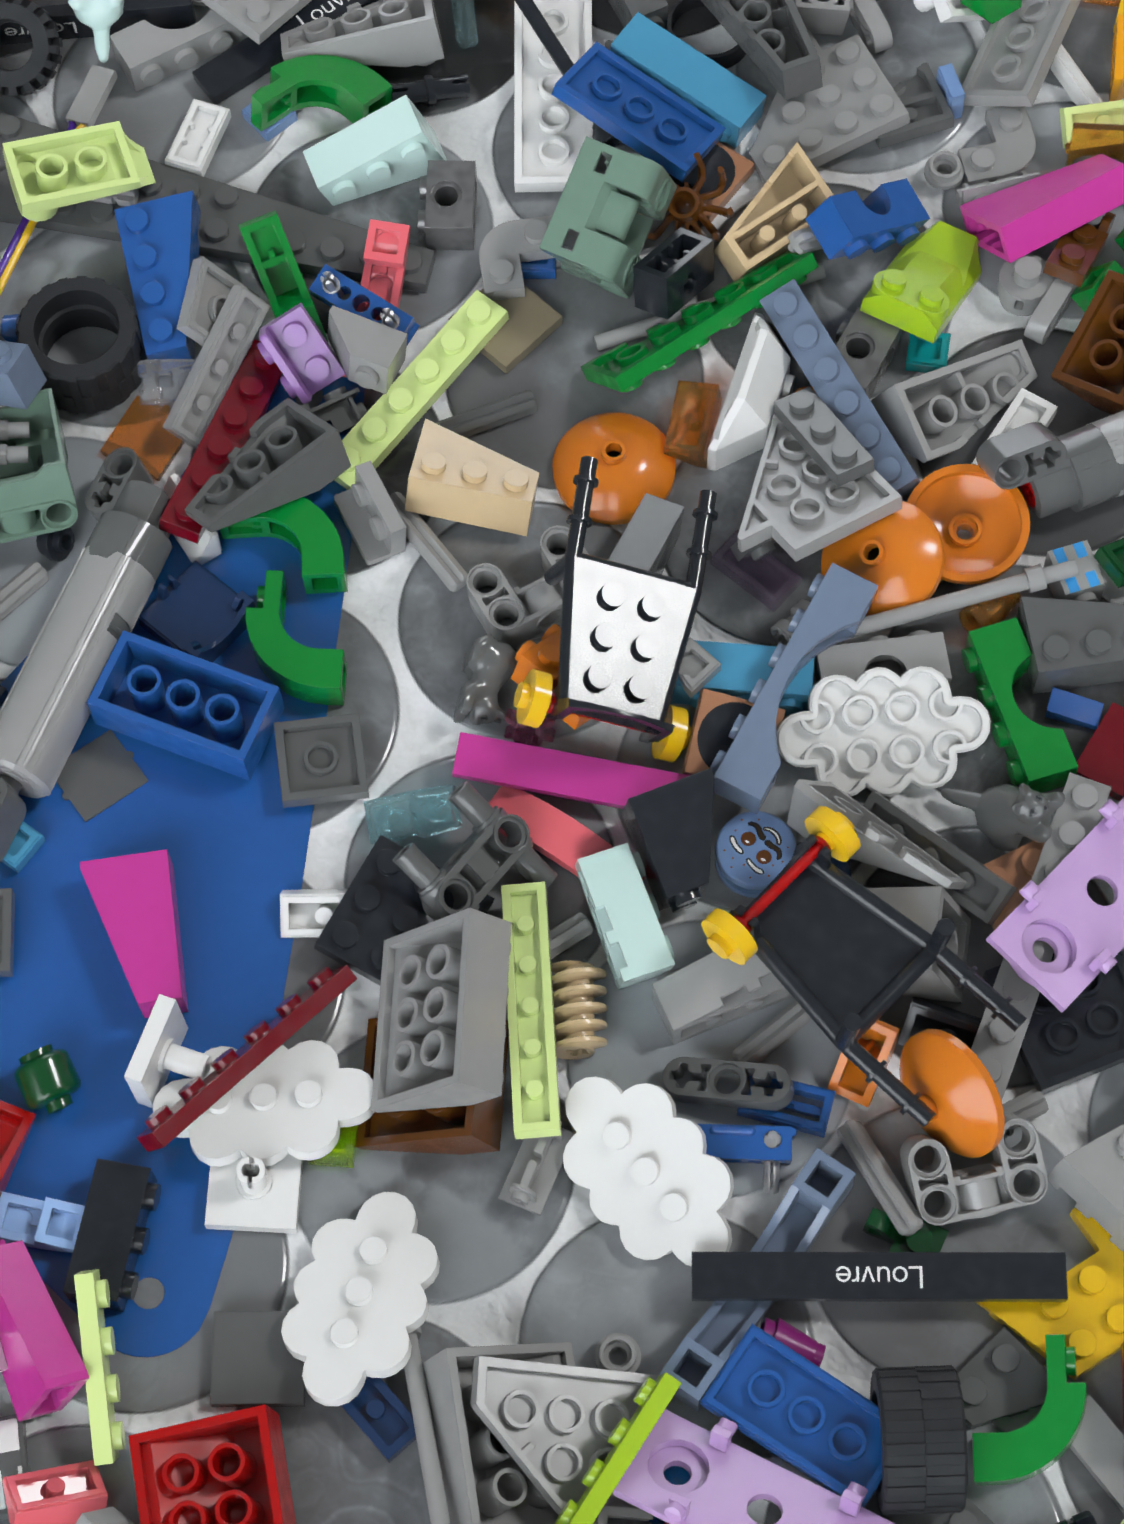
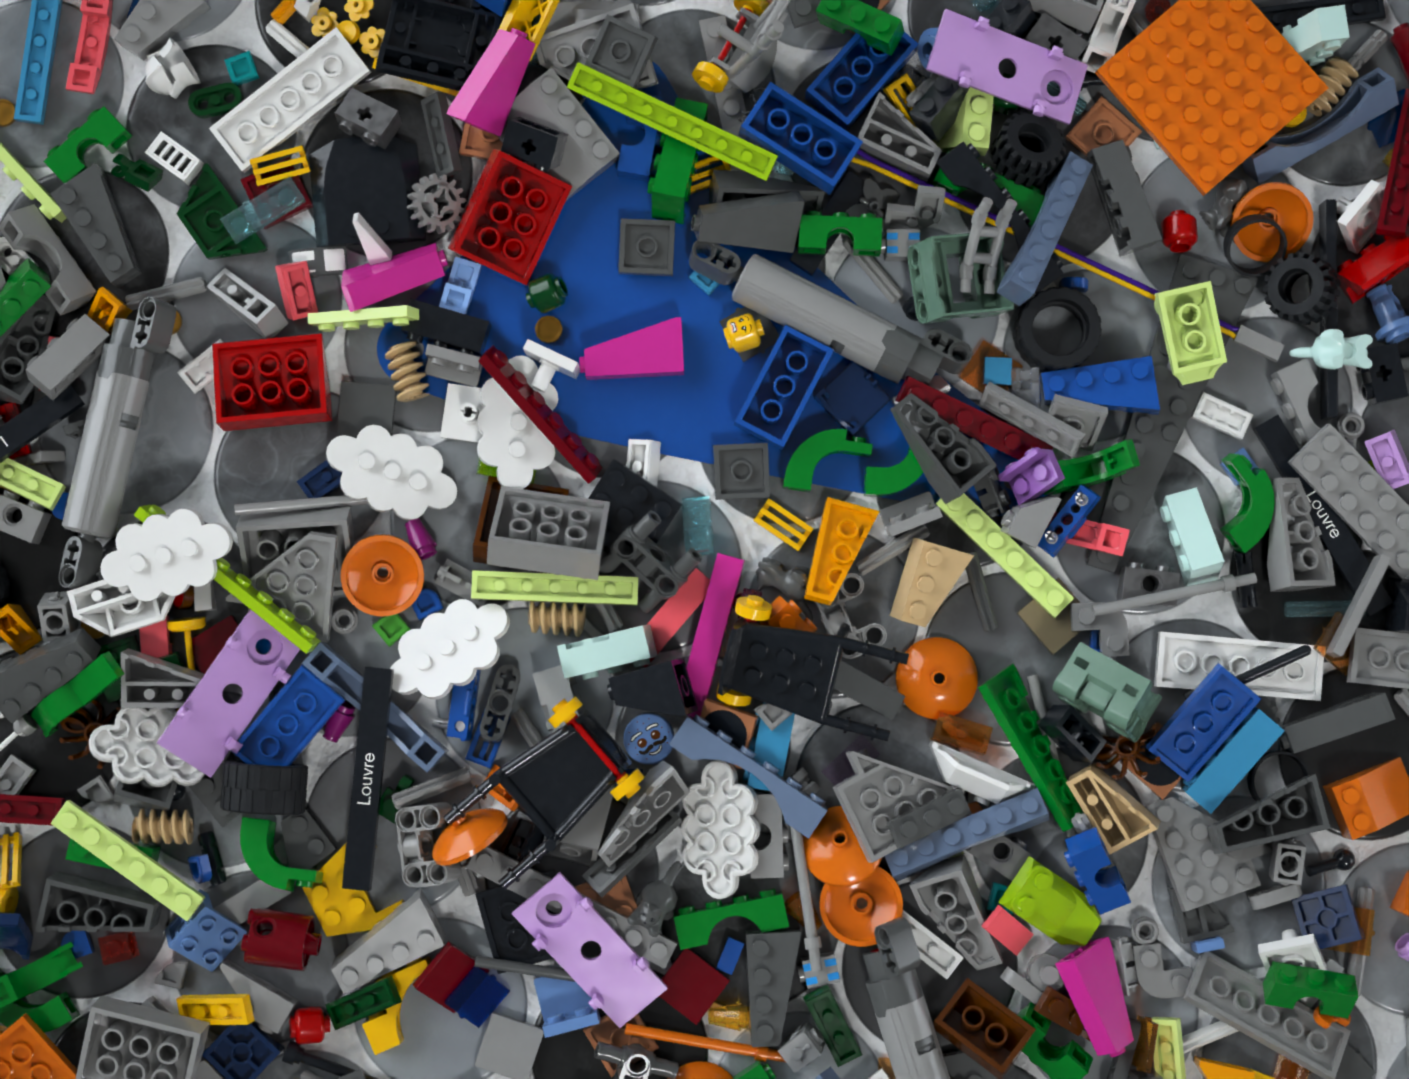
camera: 90 degrees right, 20 degrees up
(102, 774) = (743, 333): none -> yellow head
(106, 1077) = (548, 329): none -> pearl gold piece
(145, 424) = (997, 371): none -> dark azure tile
(173, 1215) = (453, 365): none -> light grey bracket
(187, 1290) = (406, 372): none -> tan piece
(417, 668) = (764, 511): none -> yellow tile
(419, 607) = (837, 545): none -> light orange wing
(439, 102) = (1226, 583): none -> light grey bar
(470, 1243) = (420, 539): none -> magenta cone
(542, 1265) = (377, 593): none -> orange dish
(575, 1225) = (427, 603): none -> blue tile
(622, 1278) = (391, 628): none -> bright green tile
(971, 334) = (1007, 930): none -> coral slope

